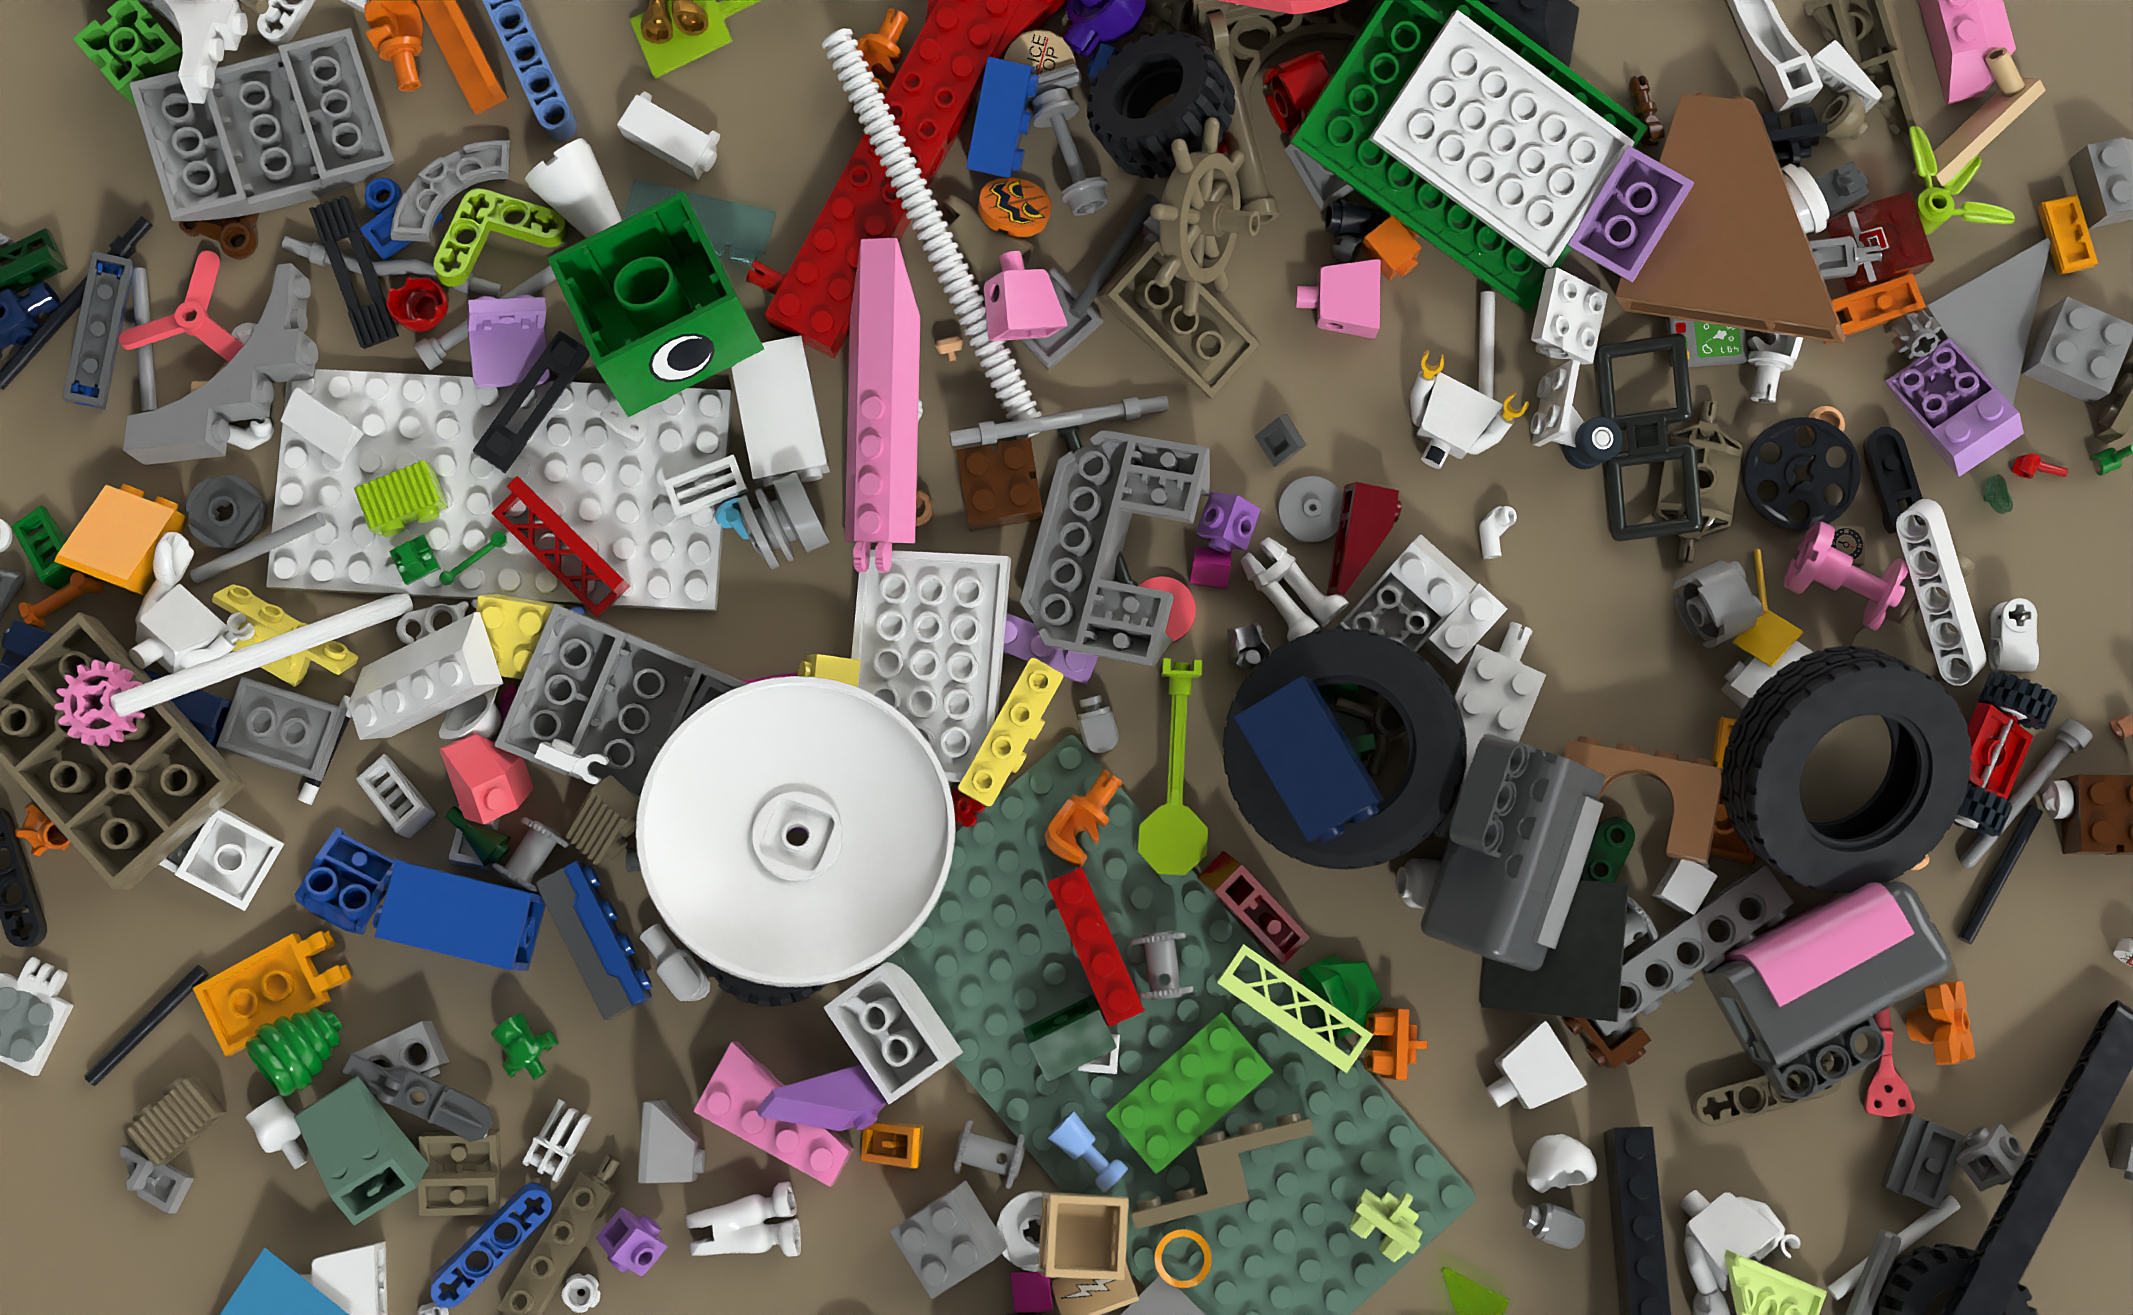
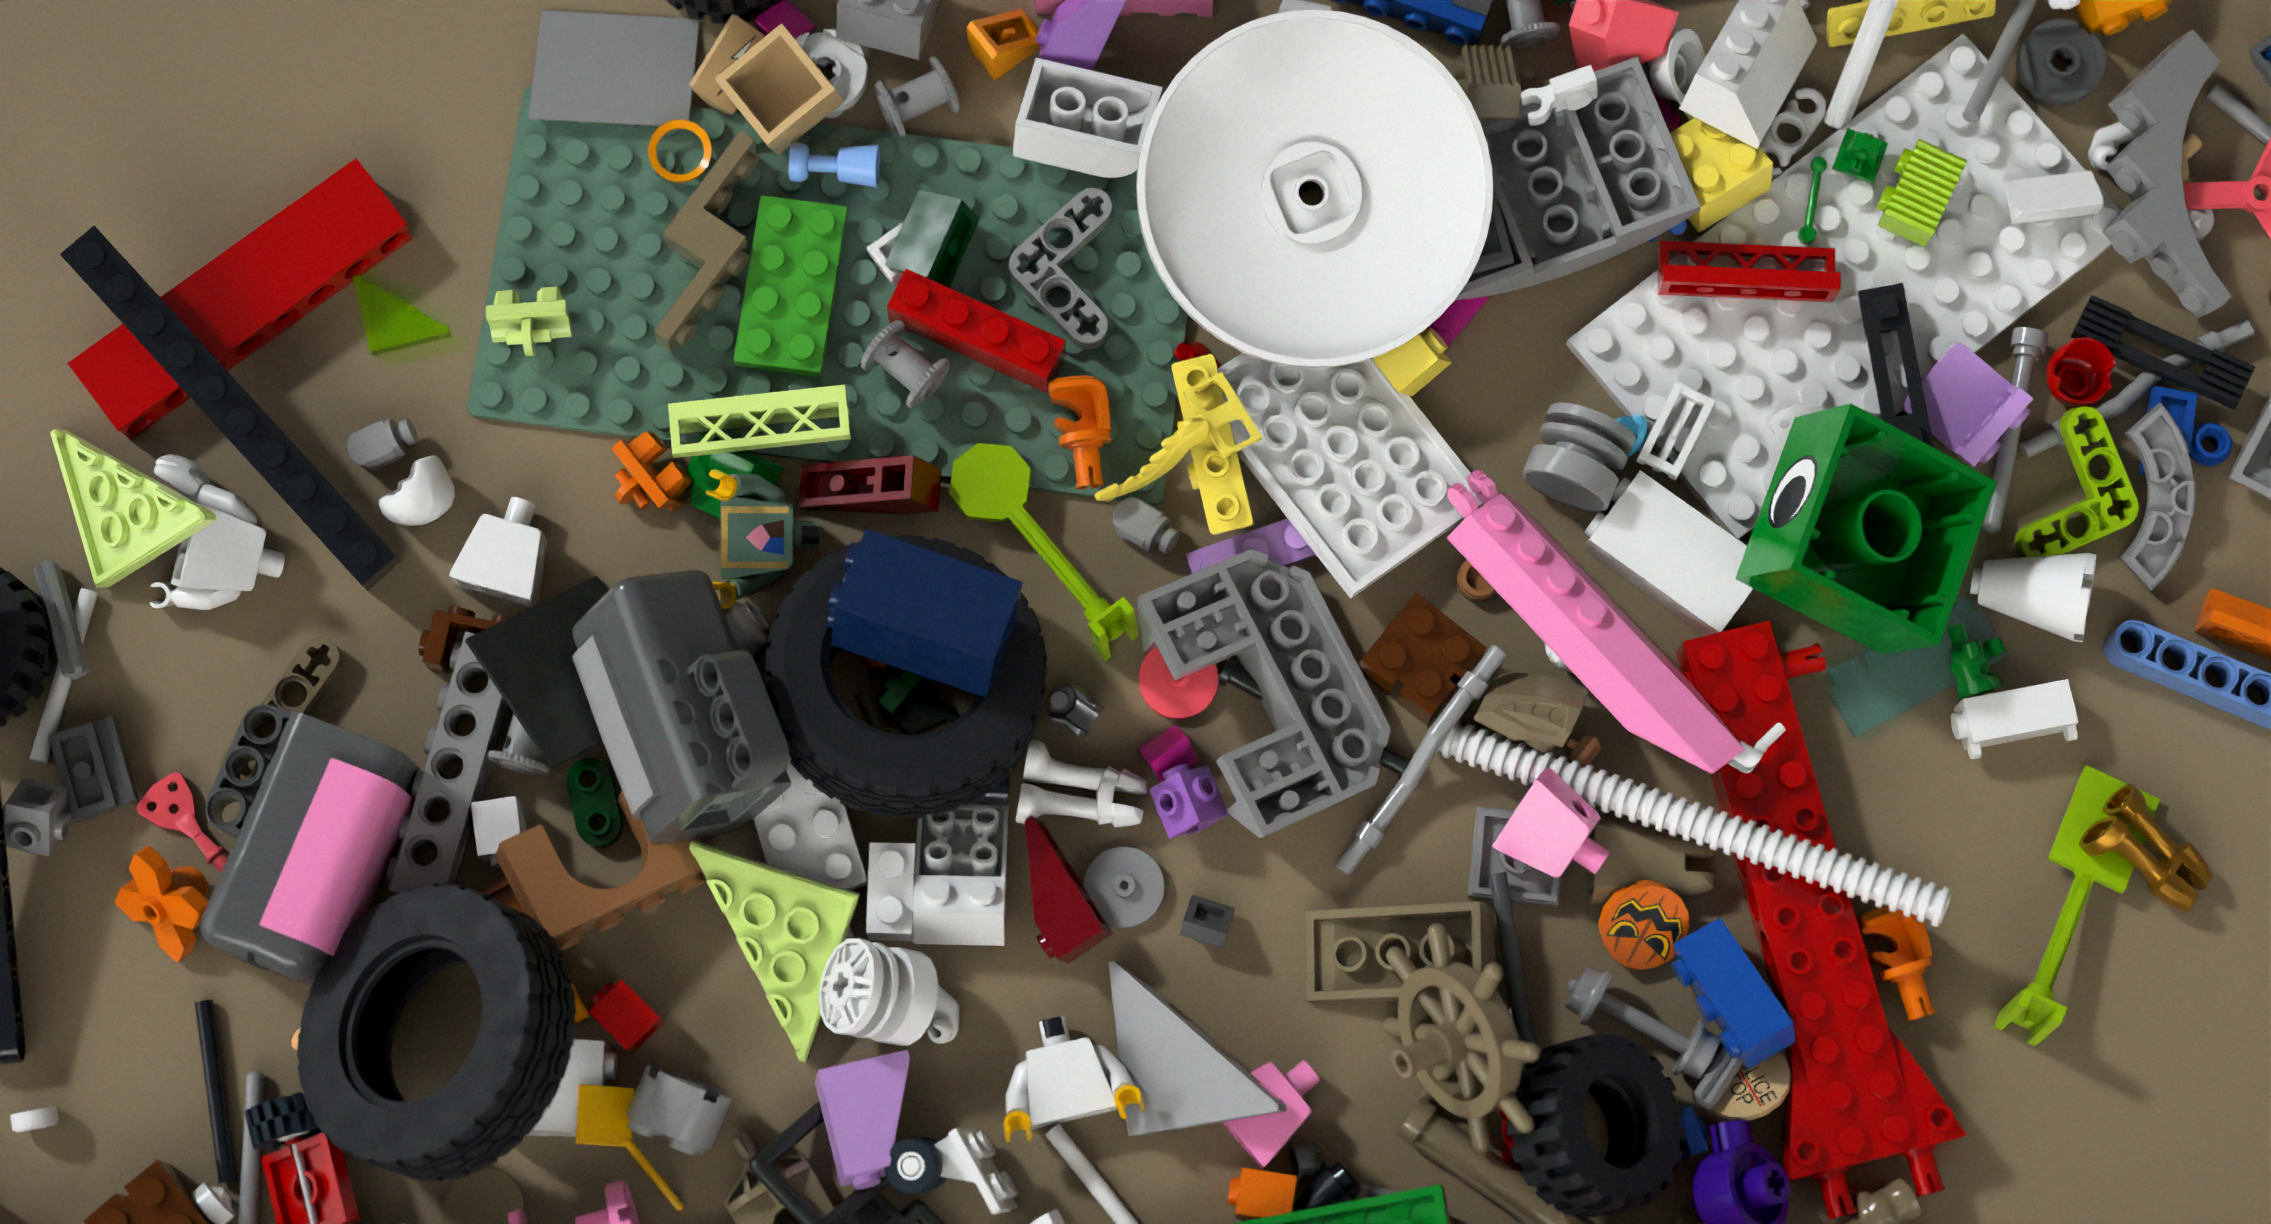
camera: 135 degrees right, 5 degrees down
(669, 181) = (1970, 663): none -> green piece
(855, 236) = (1751, 756): none -> white hand
(961, 388) = (1531, 708): none -> dark tan slope
(1010, 946) = (1051, 275): none -> light grey beam
(1014, 743) = (1191, 433): none -> light yellow piece
(1361, 934) = (755, 534): none -> sand green torso
(1380, 364) = (1177, 1065): none -> light grey tile
(1532, 563) = (878, 992): none -> white wheel
(1556, 658) = (784, 929): none -> yellowish green tile
(1601, 500) = (862, 1114): none -> lavender slope
(1699, 695) = (625, 1015): none -> red brick

